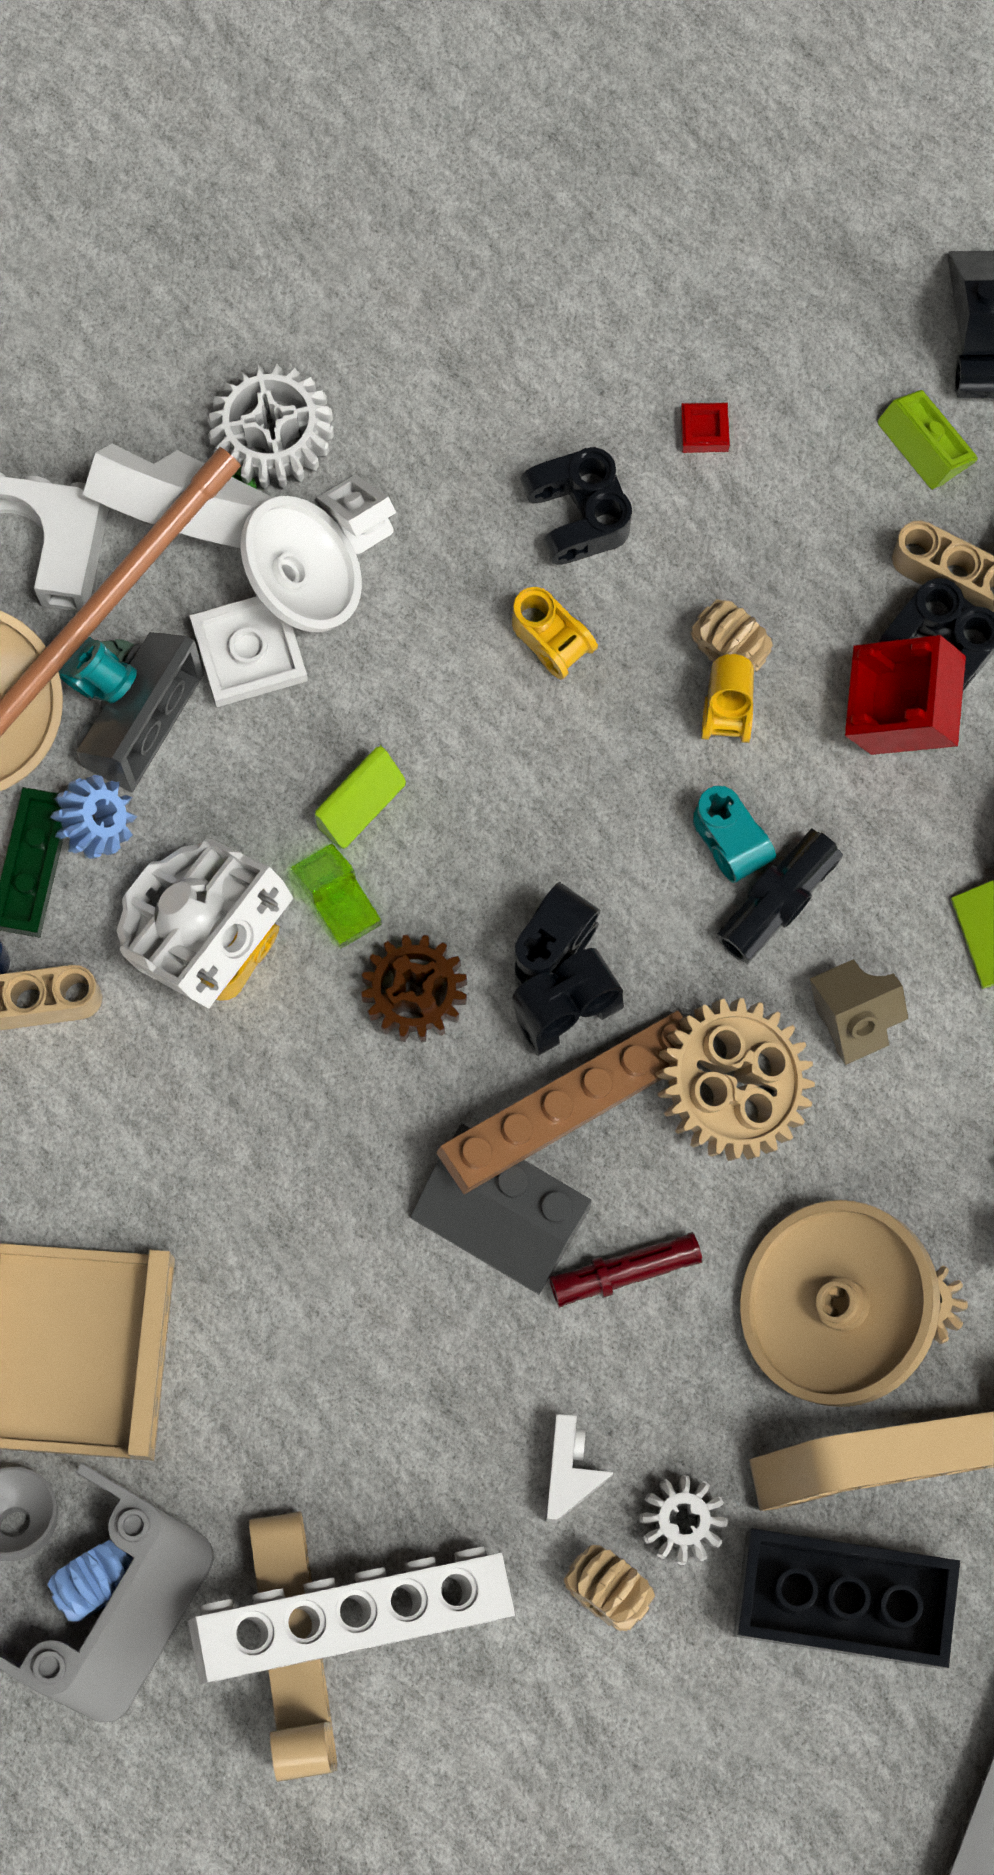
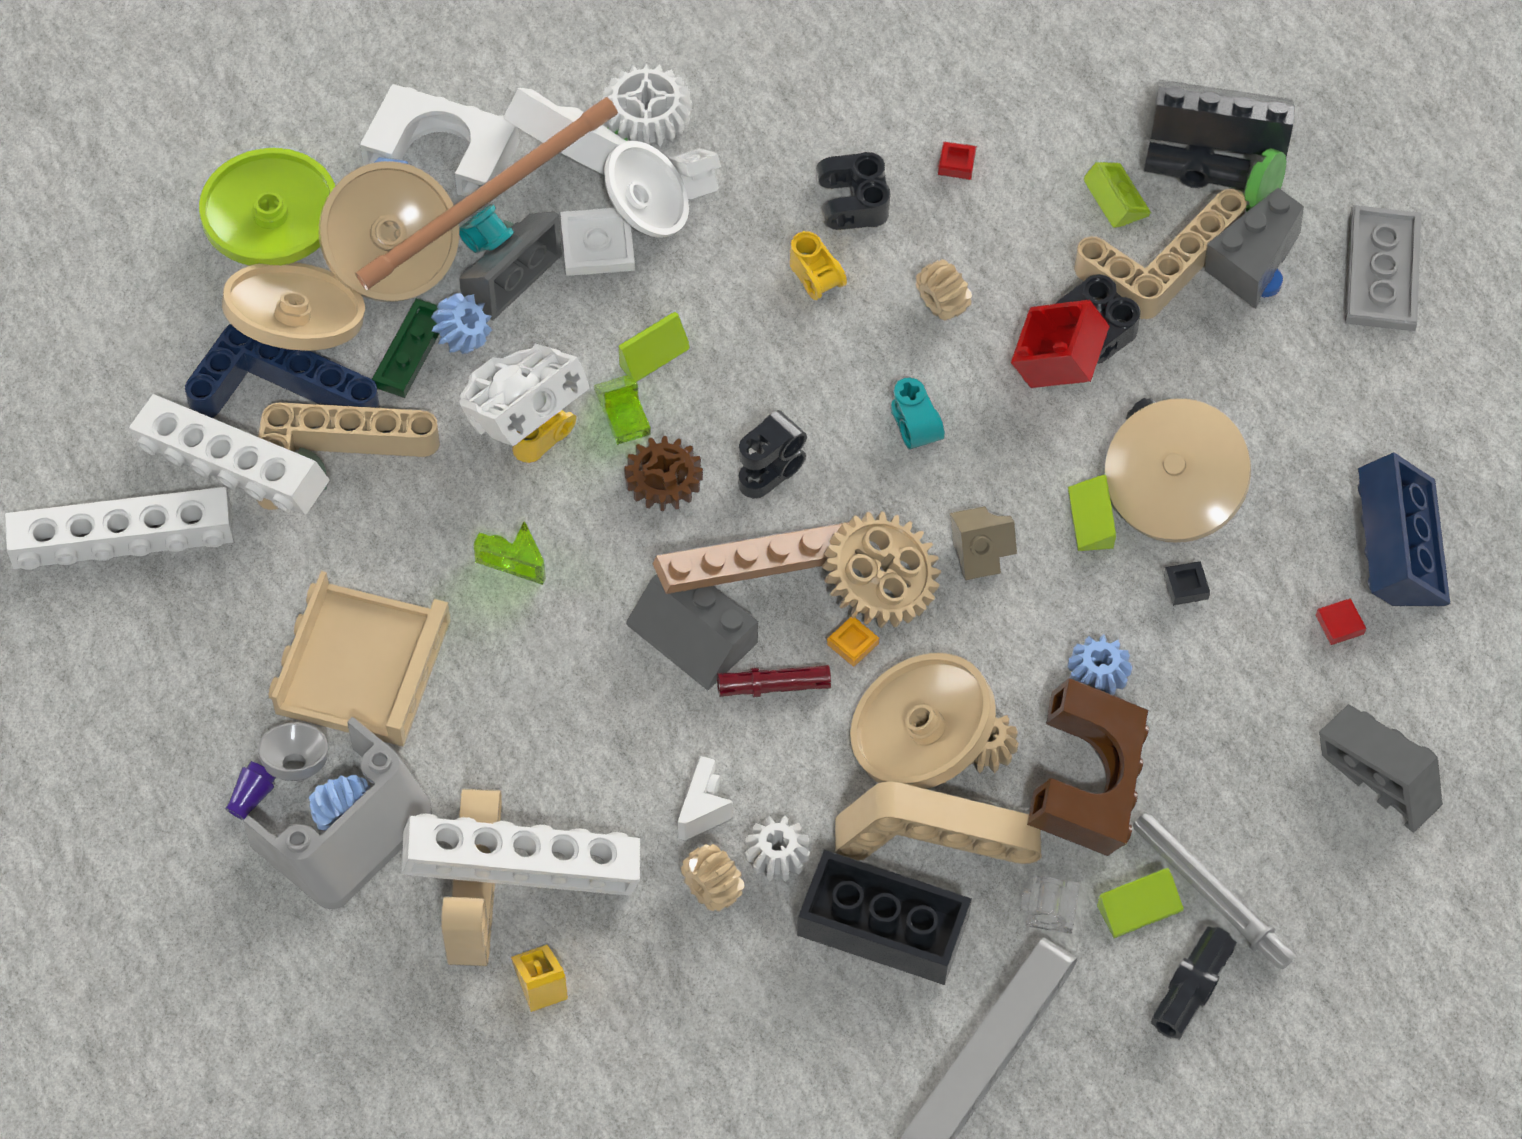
camera: 10 degrees right, 15 degrees down
(251, 1155) = (516, 558): none -> clear neon green slope
(407, 1768) = (540, 977): none -> yellow slope
(555, 1001) = (759, 489): black piece -> none
(716, 1185) = (853, 641): none -> light orange tile
(729, 698) = (932, 332): yellow piece -> none
(779, 896) = (941, 461): black piece -> none

